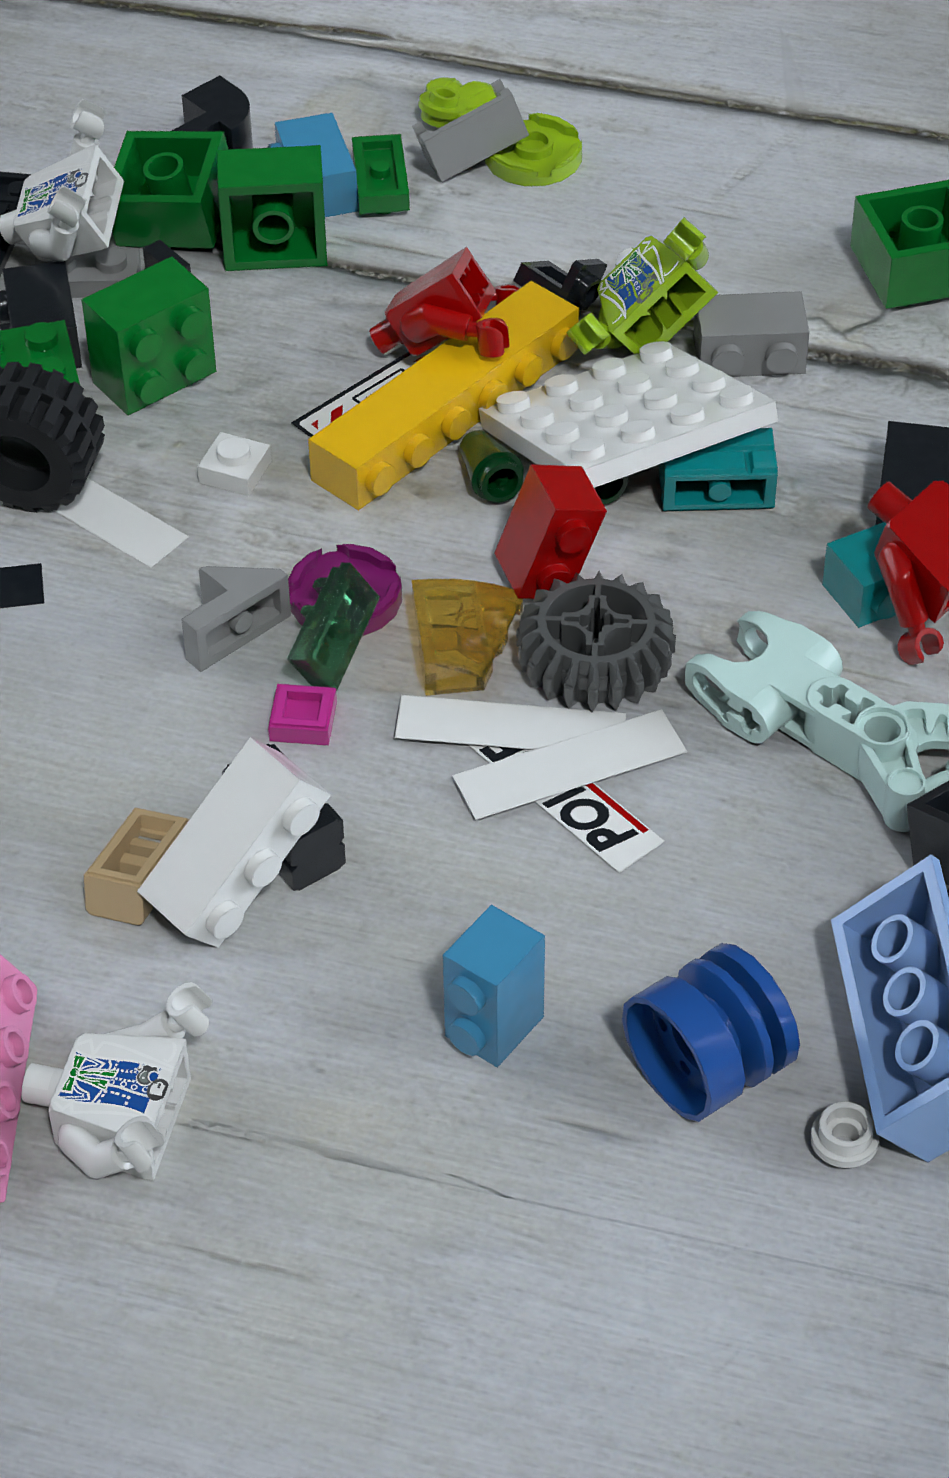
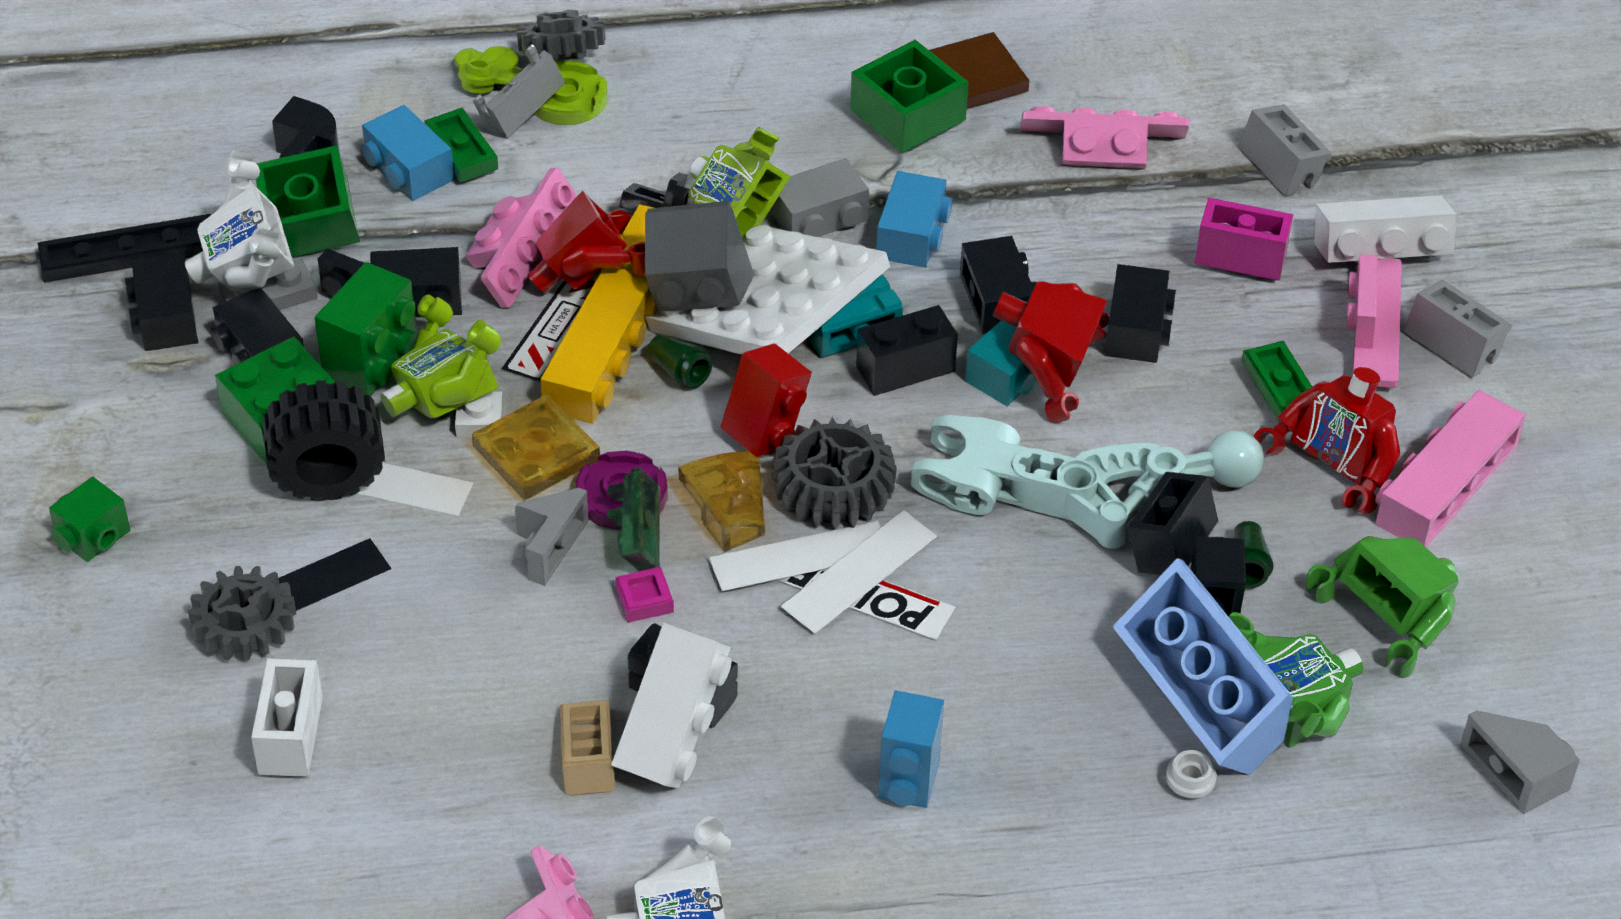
camera: 25 degrees left, 0 degrees up
(210, 401) = (443, 366): none -> lime torso
(252, 303) = (430, 271): none -> black brick
(272, 207) = (403, 196): green brick -> none
(272, 514) = (535, 446): none -> clear yellow plate
(366, 288) = (511, 235): none -> bright pink bracket
(546, 348) = (695, 257): none -> dark grey slope
(554, 85) = (562, 34): none -> dark grey gear
(710, 1031) = (1076, 731): blue wheel -> none
(760, 526) = (906, 350): none -> black brick
(851, 382) = (912, 218): none -> dark azure brick

